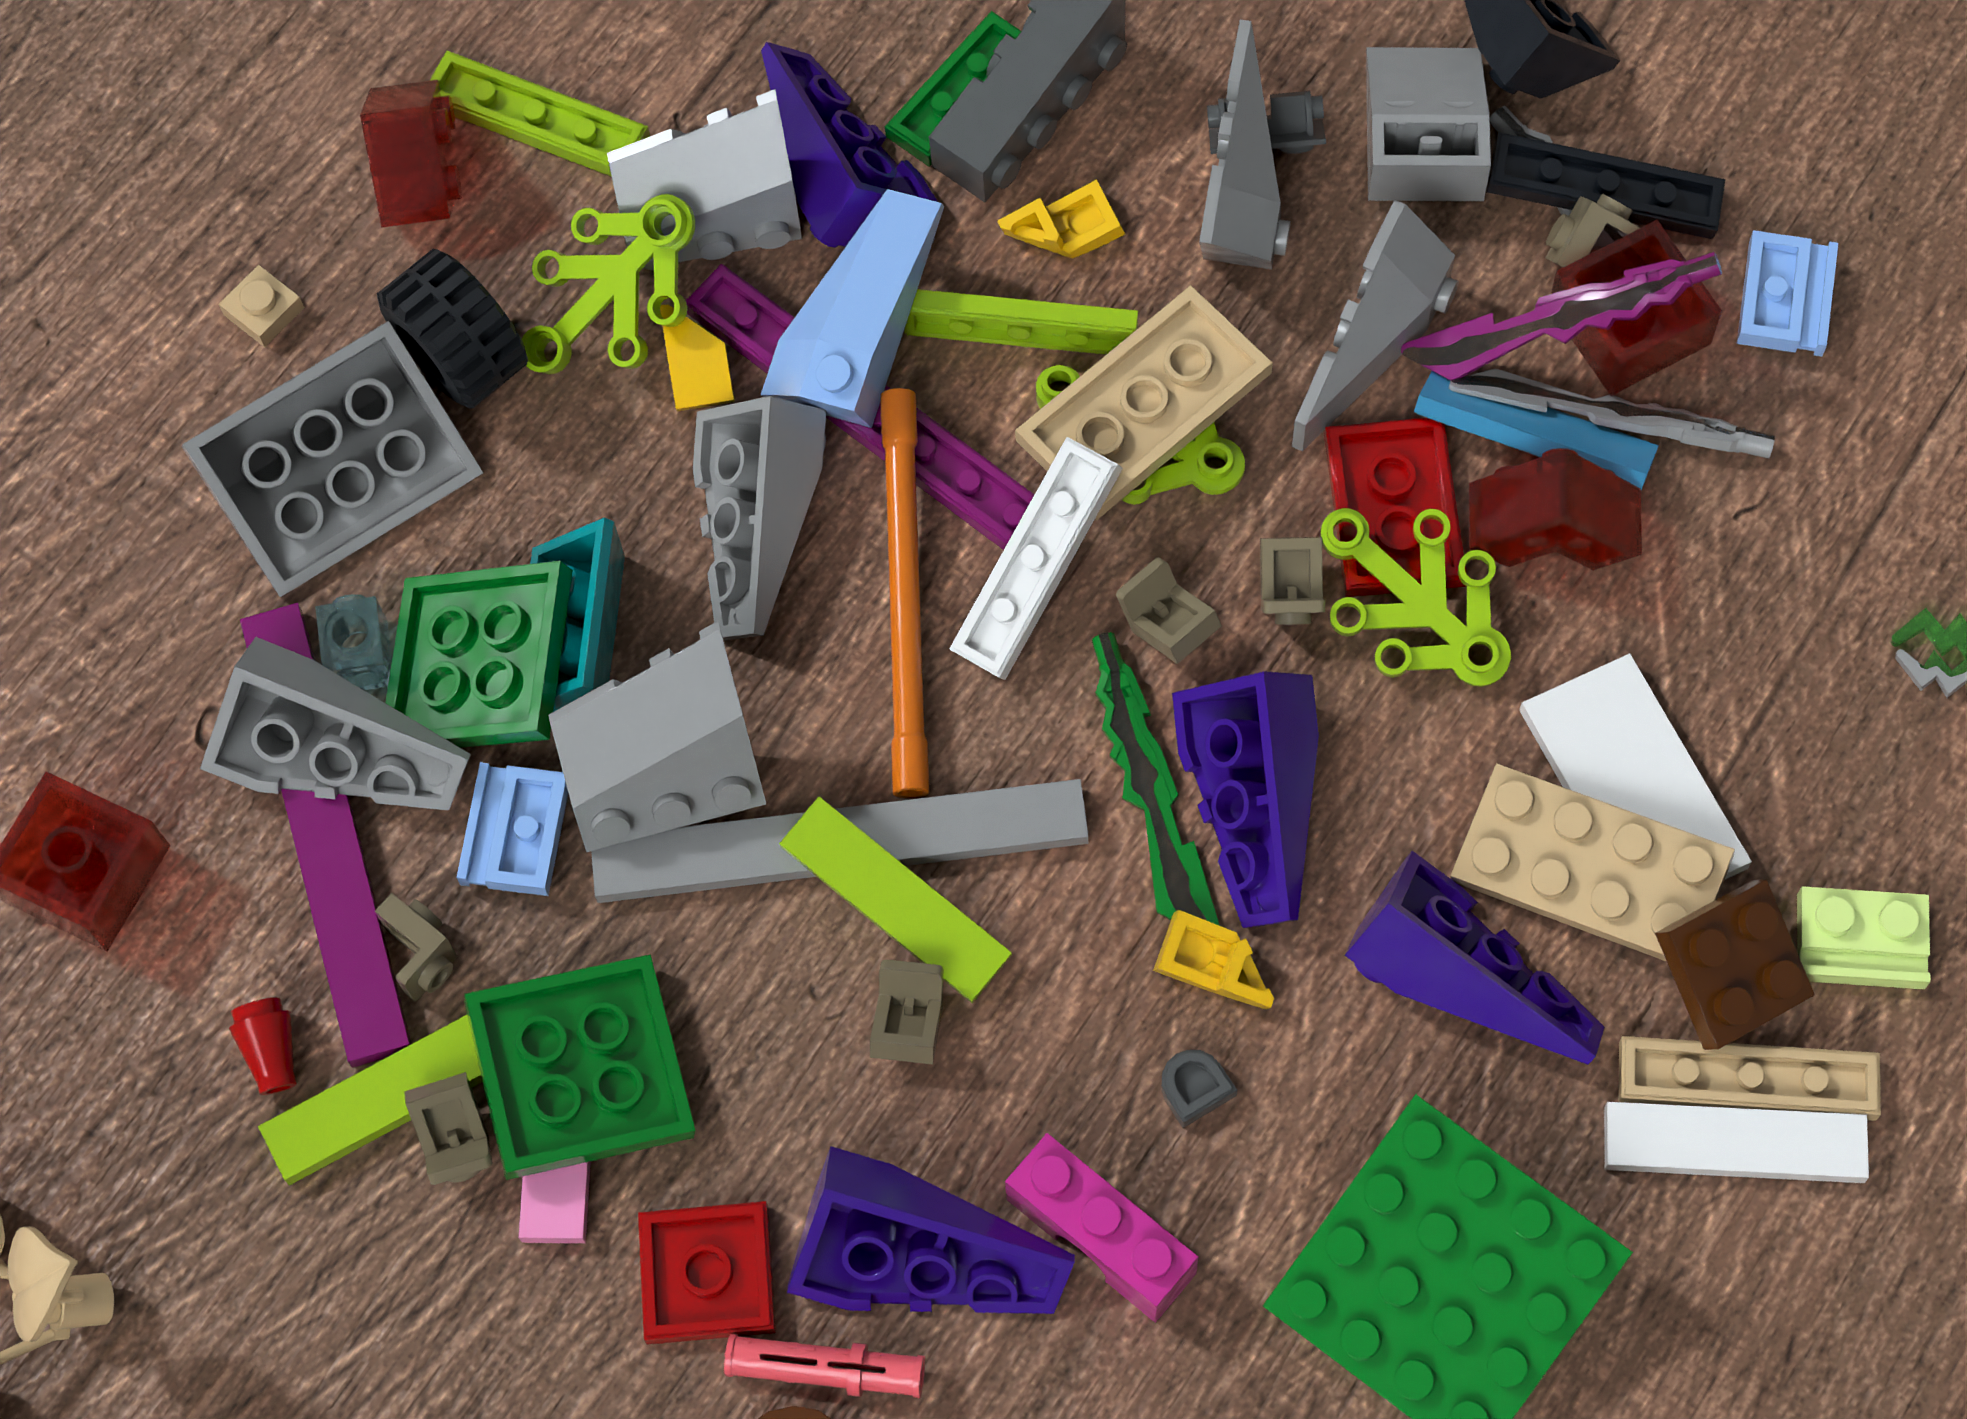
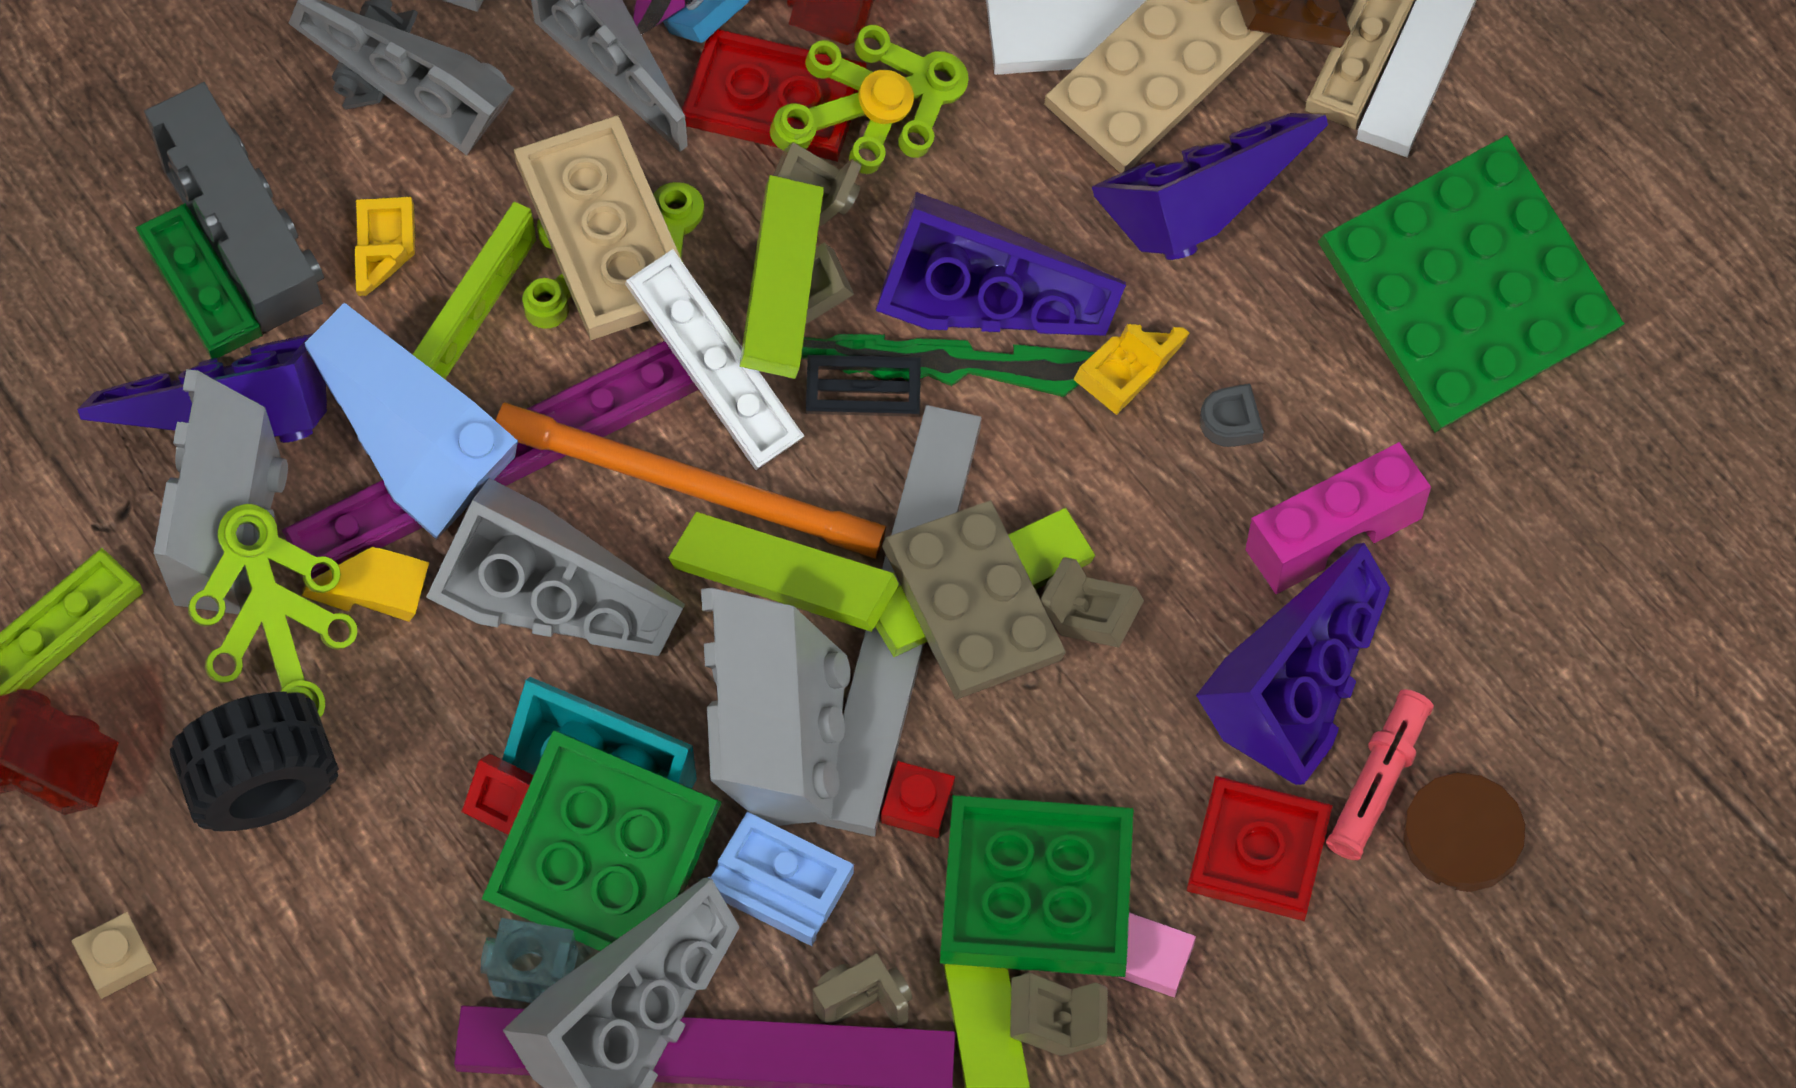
camera: 75 degrees left, 5 degrees down
(332, 459) = (319, 930): light grey slope -> none
(515, 543) = (496, 793): none -> red plate
(646, 926) = (918, 799): none -> red plate
(829, 711) = (784, 571): none -> lime tile
(860, 895) = (973, 599): none -> dark tan plate
(1098, 756) = (863, 363): none -> black tile
(1149, 582) = (782, 277): none -> lime tile
(1415, 605) = (885, 96): none -> yellow plate

